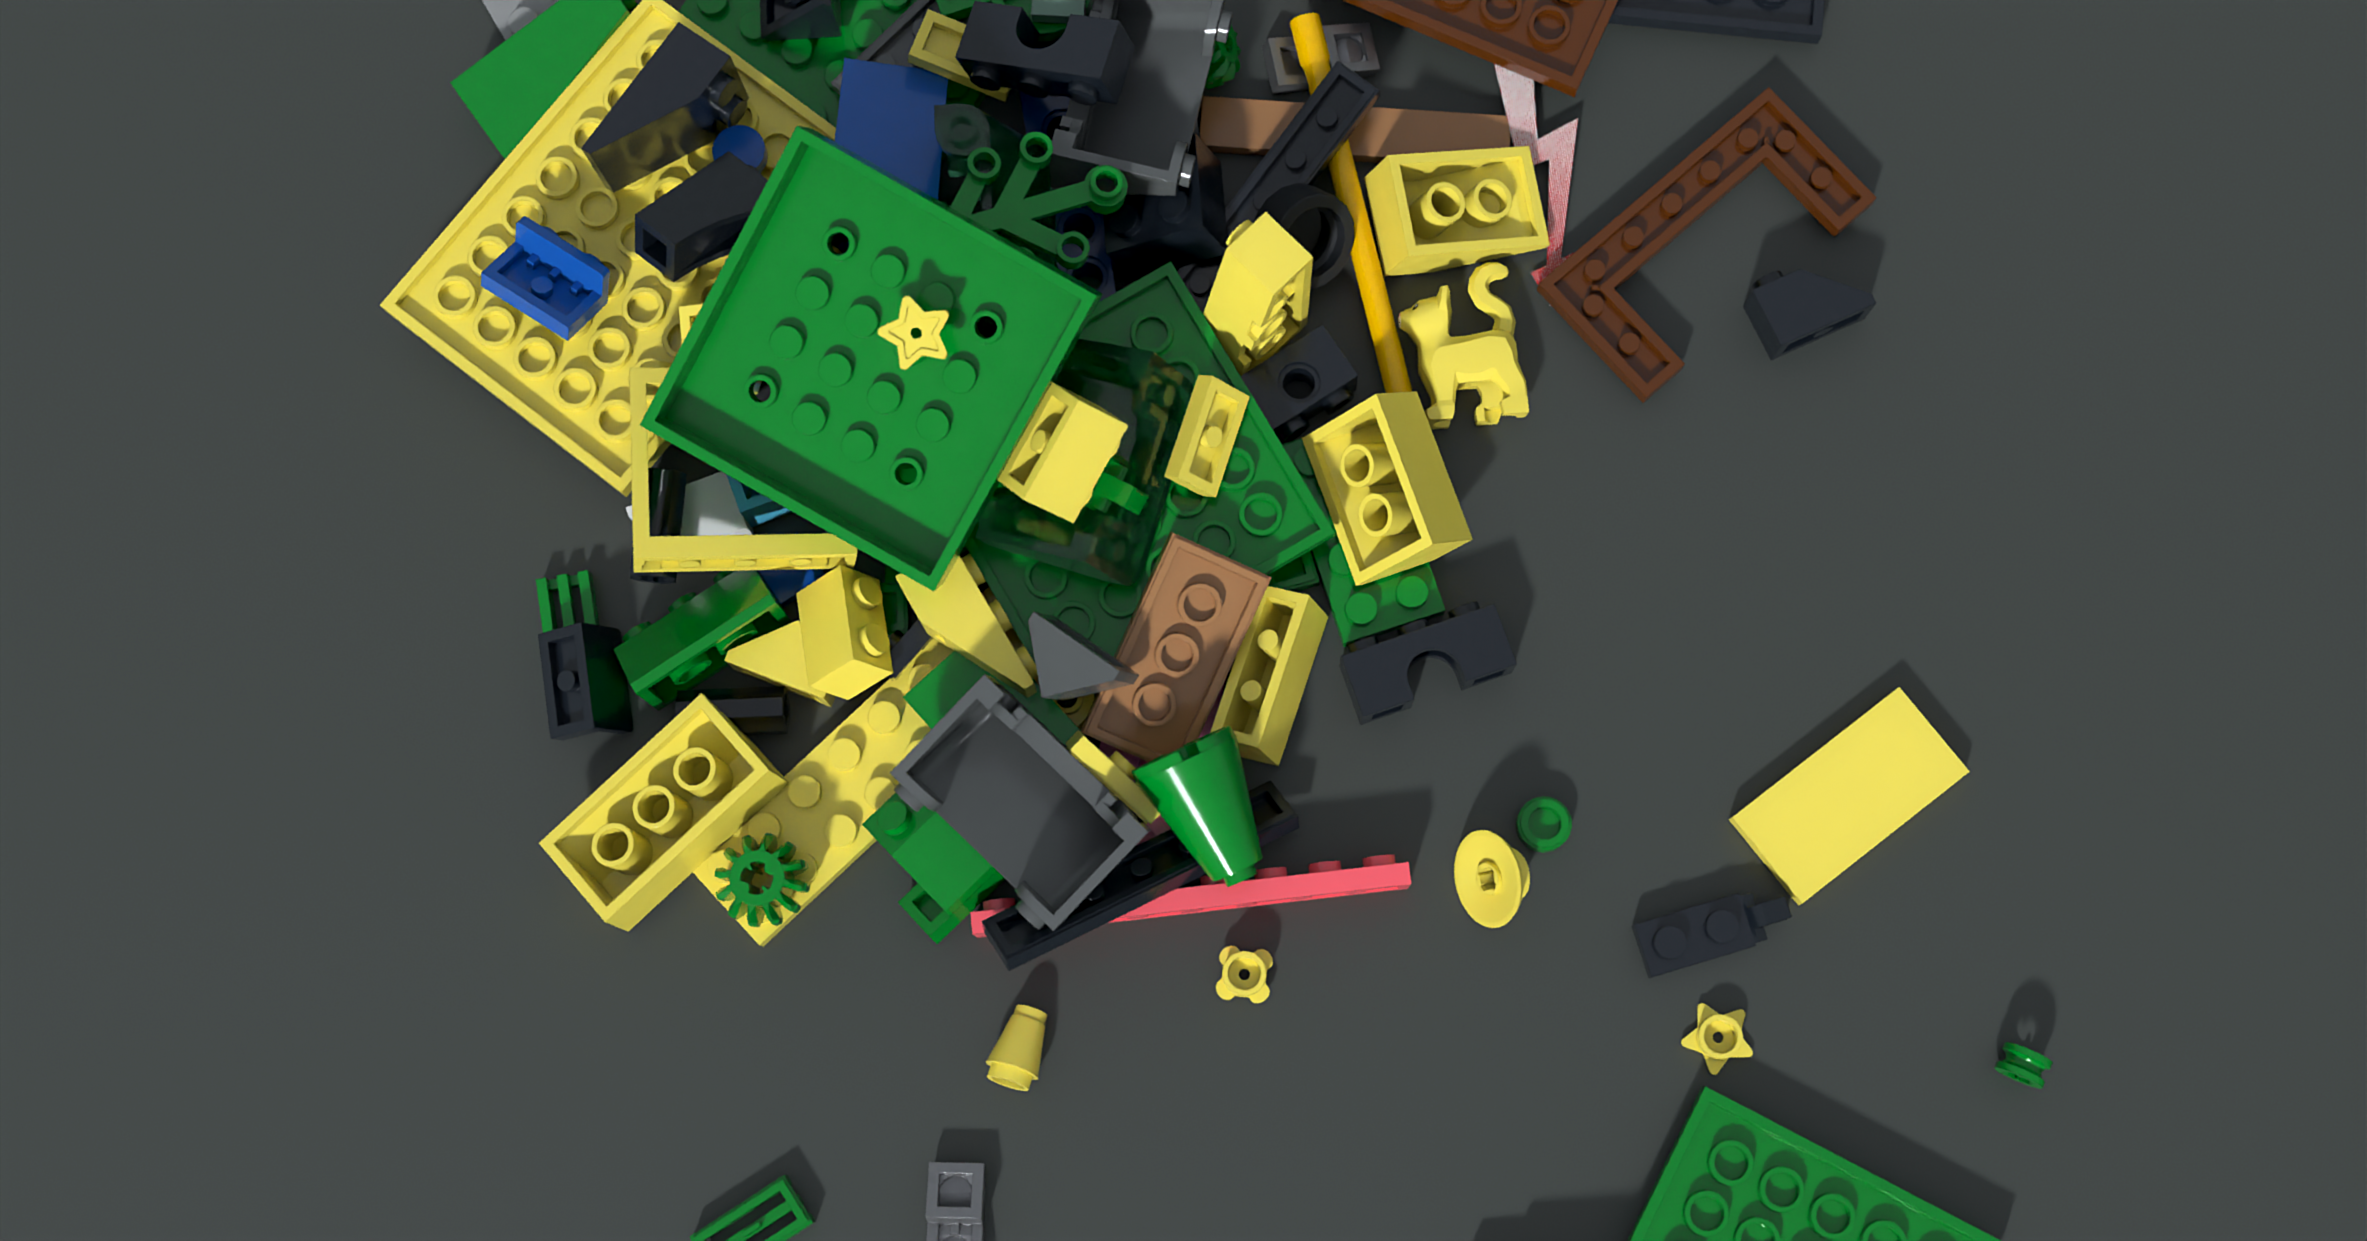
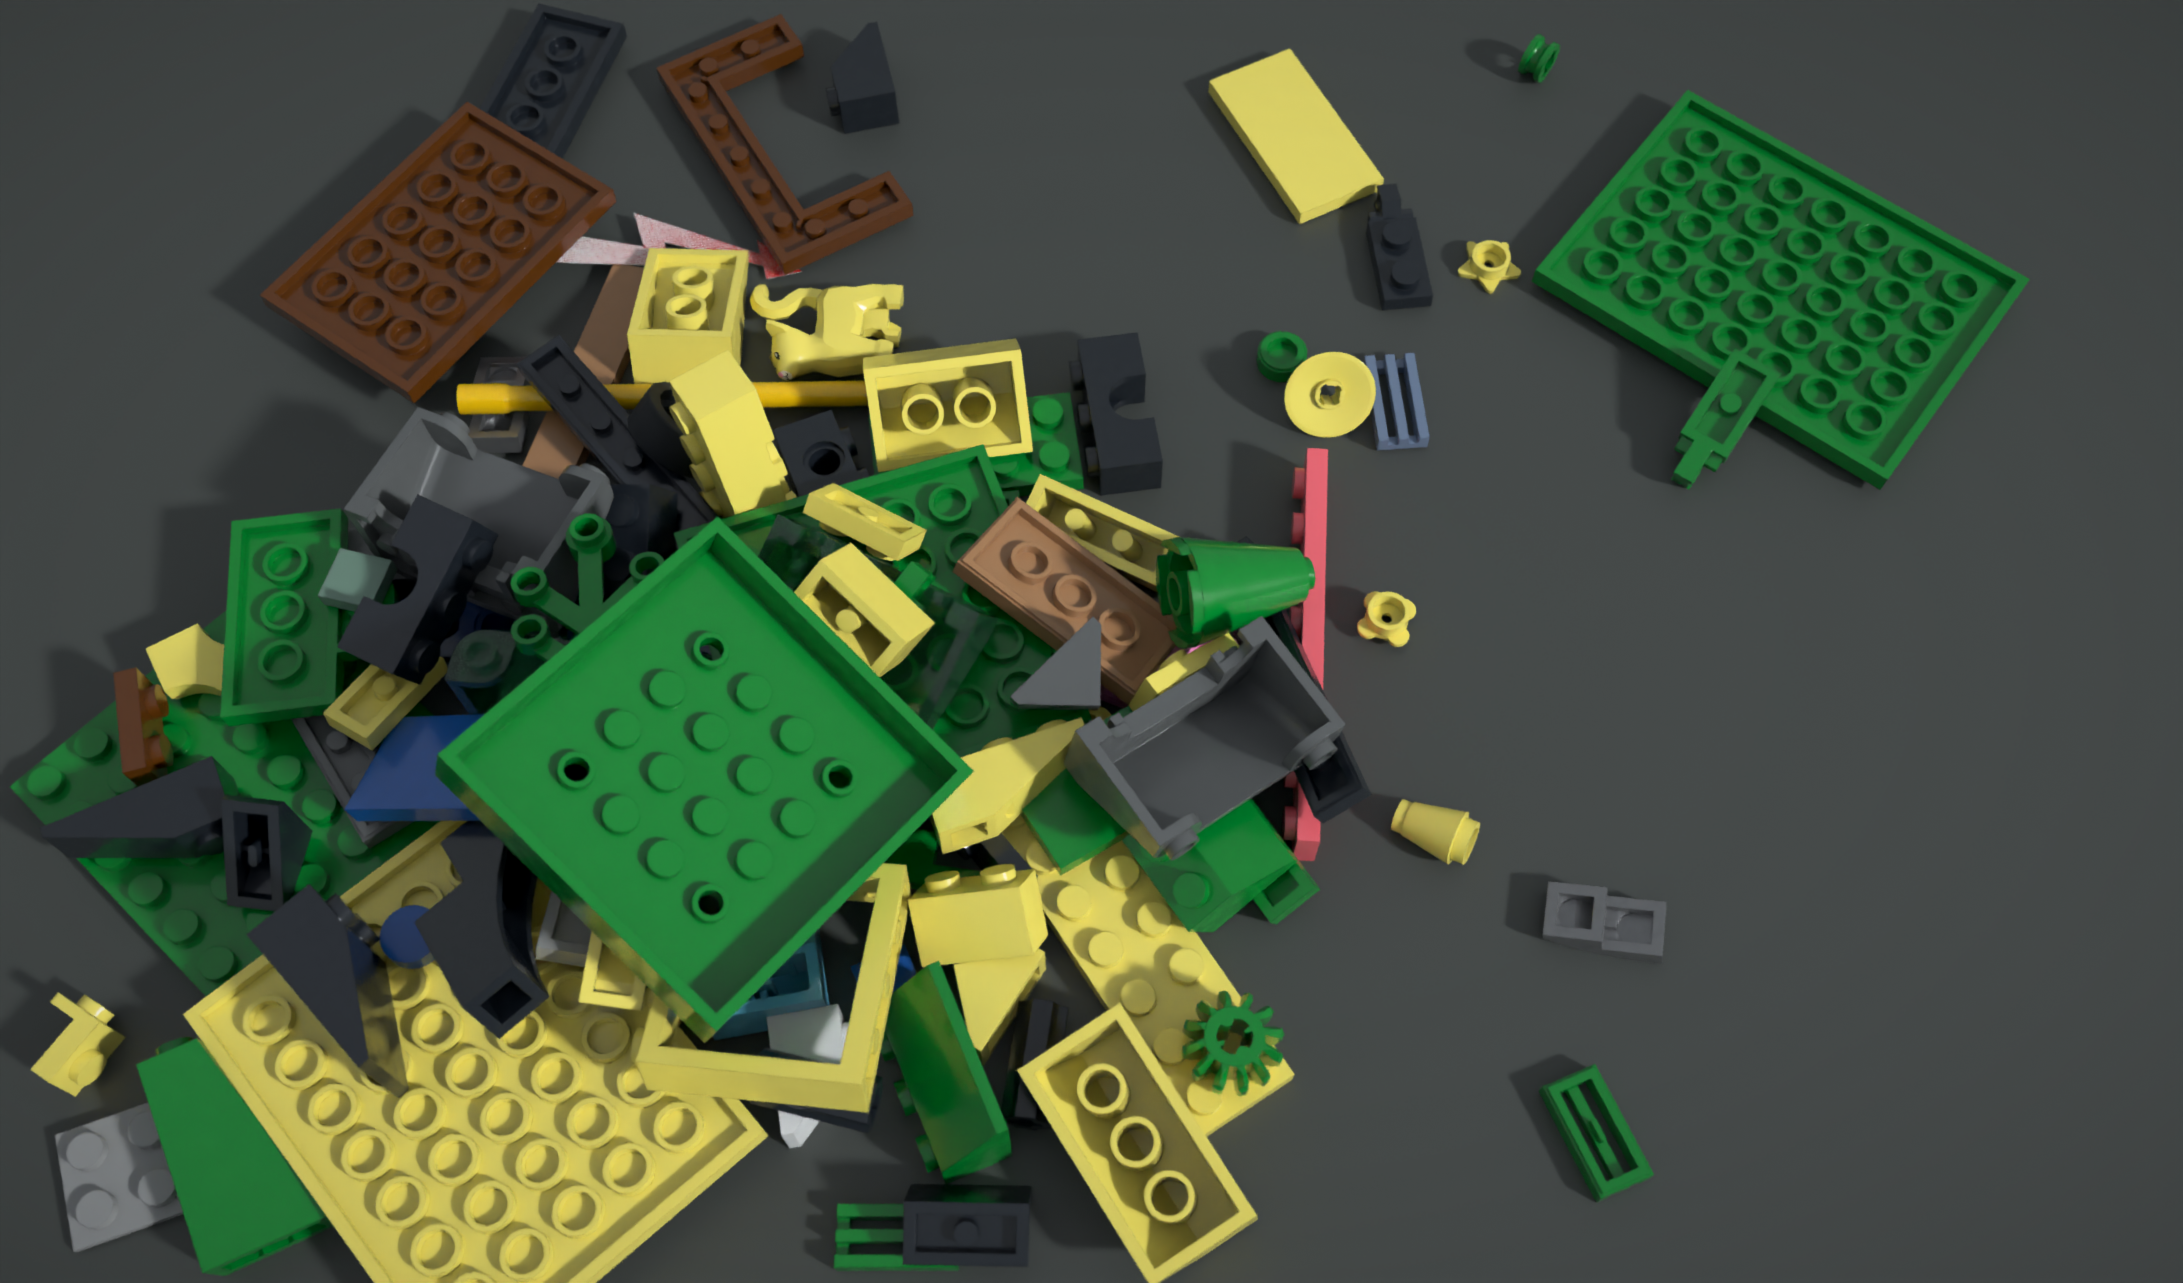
camera: 85 degrees left, 15 degrees down
(548, 279) = (490, 1166): blue bracket -> none
(912, 317) = (700, 719): light yellow plate -> none
(1554, 941) = (1391, 367): none -> sand blue tile

